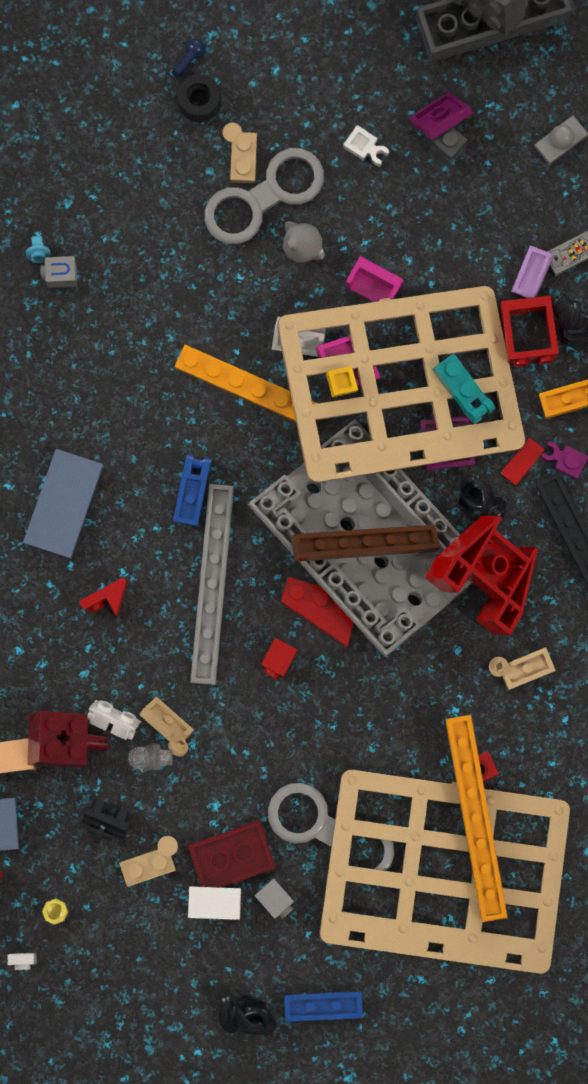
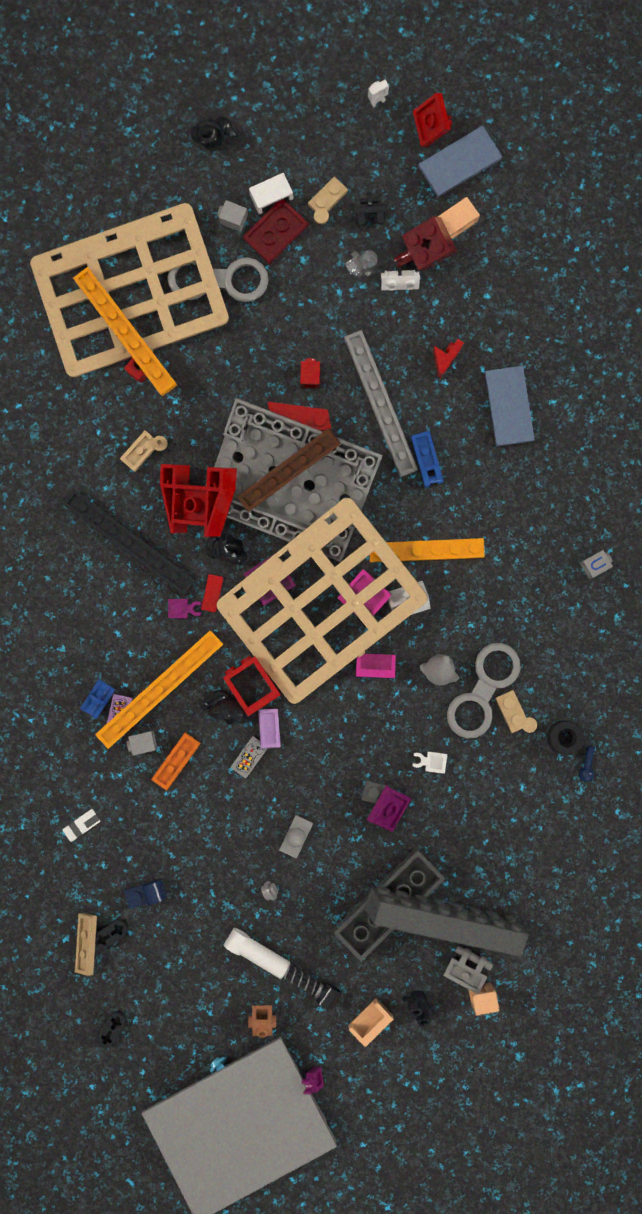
camera: 155 degrees right, 5 degrees up
(37, 252) = (619, 571): medium azure plate -> none
(55, 911) = (373, 137): light yellow tile -> none
(169, 725) = (361, 293): tan hinge -> none
(323, 1006) = (166, 164): blue plate -> none
(342, 381) = (361, 577): yellow tile -> none
(463, 388) = (276, 619): teal plate -> none

